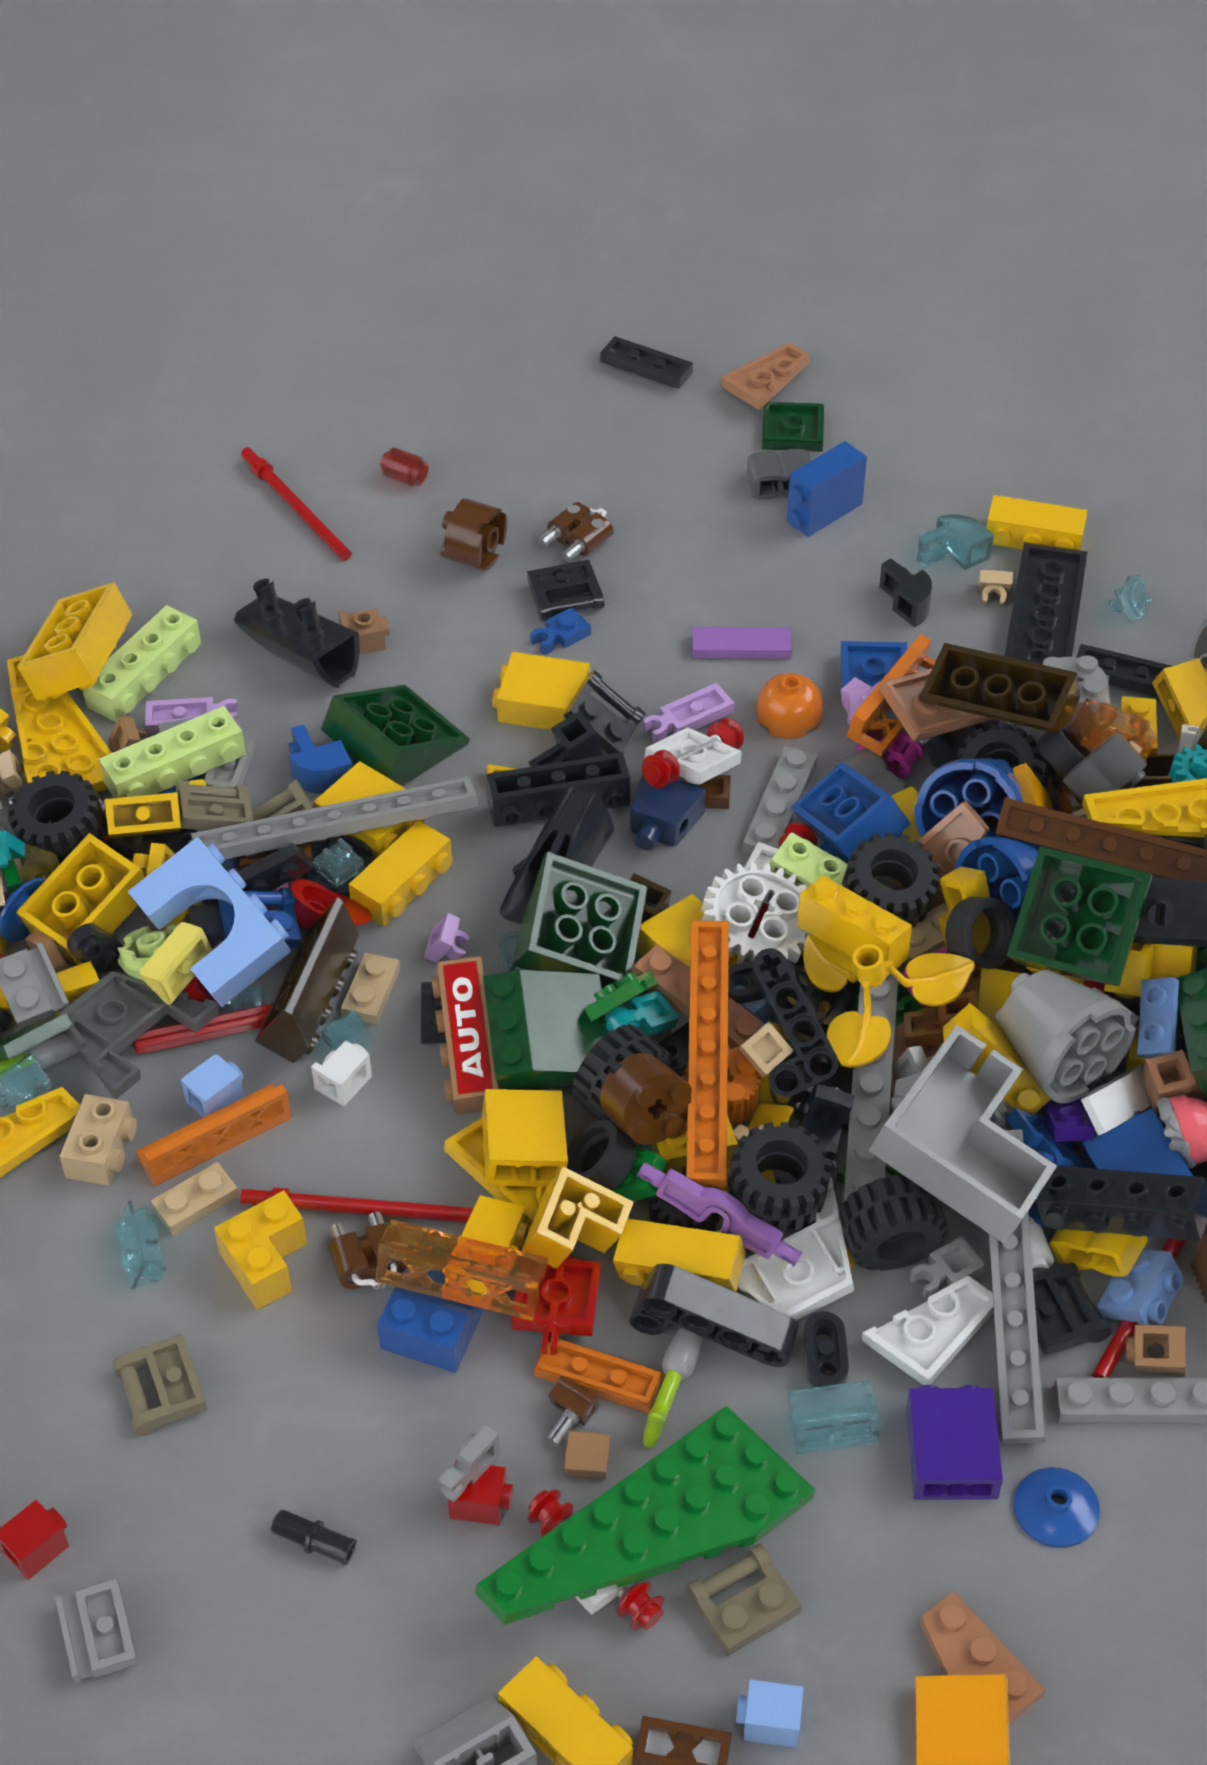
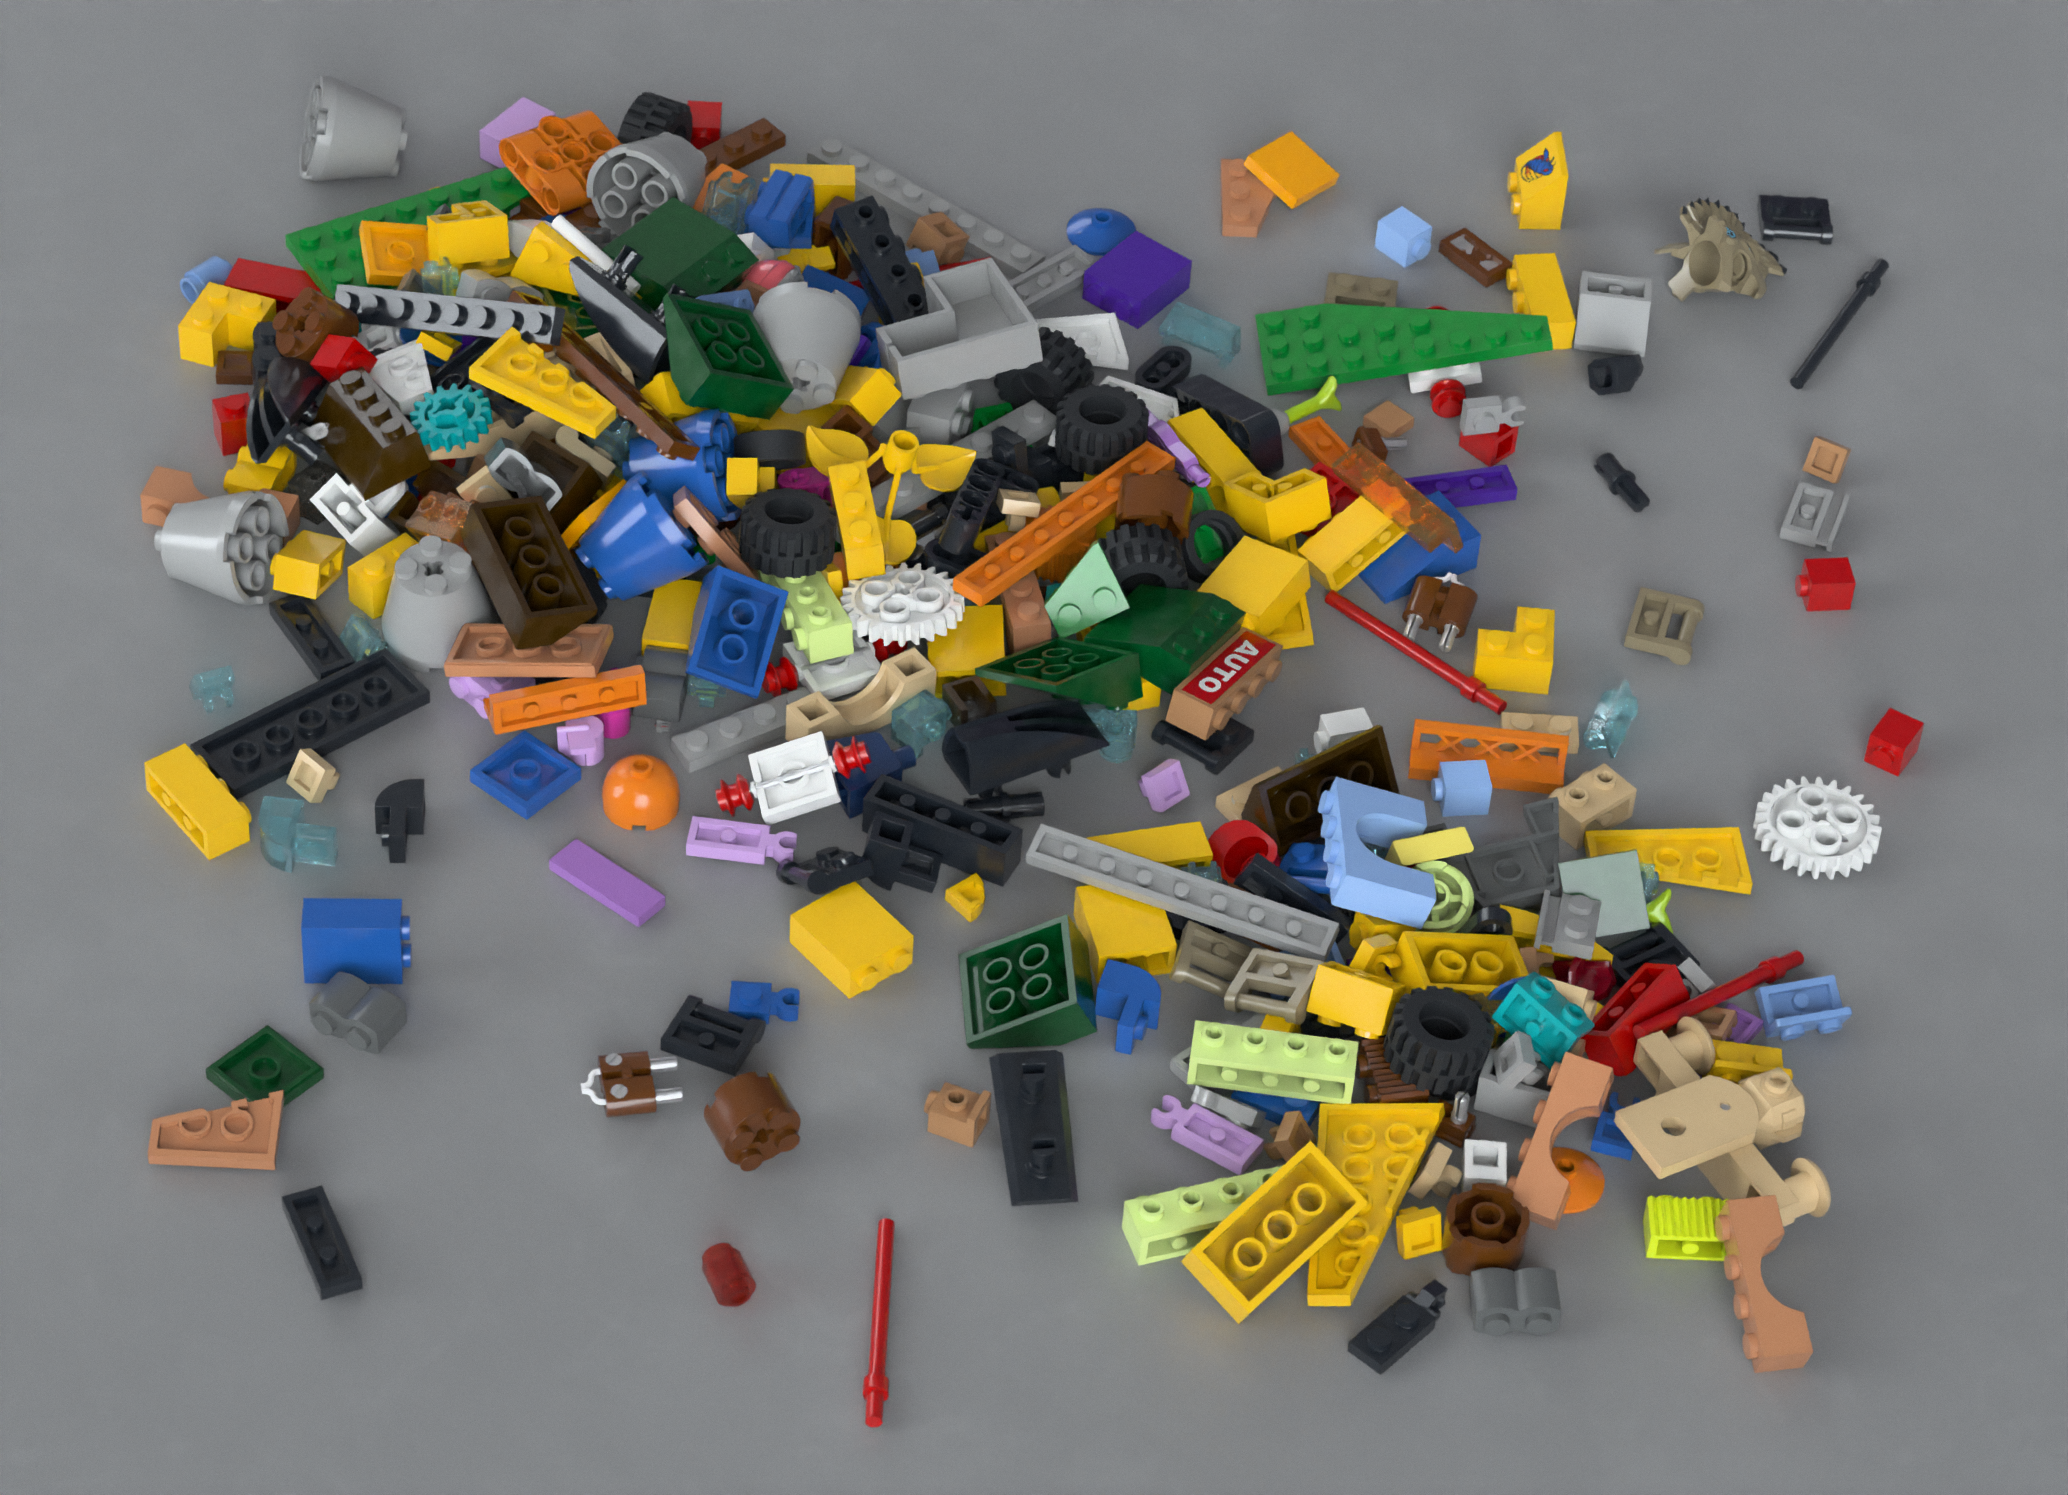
camera: 145 degrees left, 5 degrees down
(126, 1718) = (1826, 459): none -> medium nougat tile
(418, 1681) = (1614, 374): none -> black rock
(455, 1409) = (1469, 486): none -> dark purple plate
(665, 866) = (919, 721): none -> clear light blue brick
(720, 834) = (870, 709): none -> tan arch

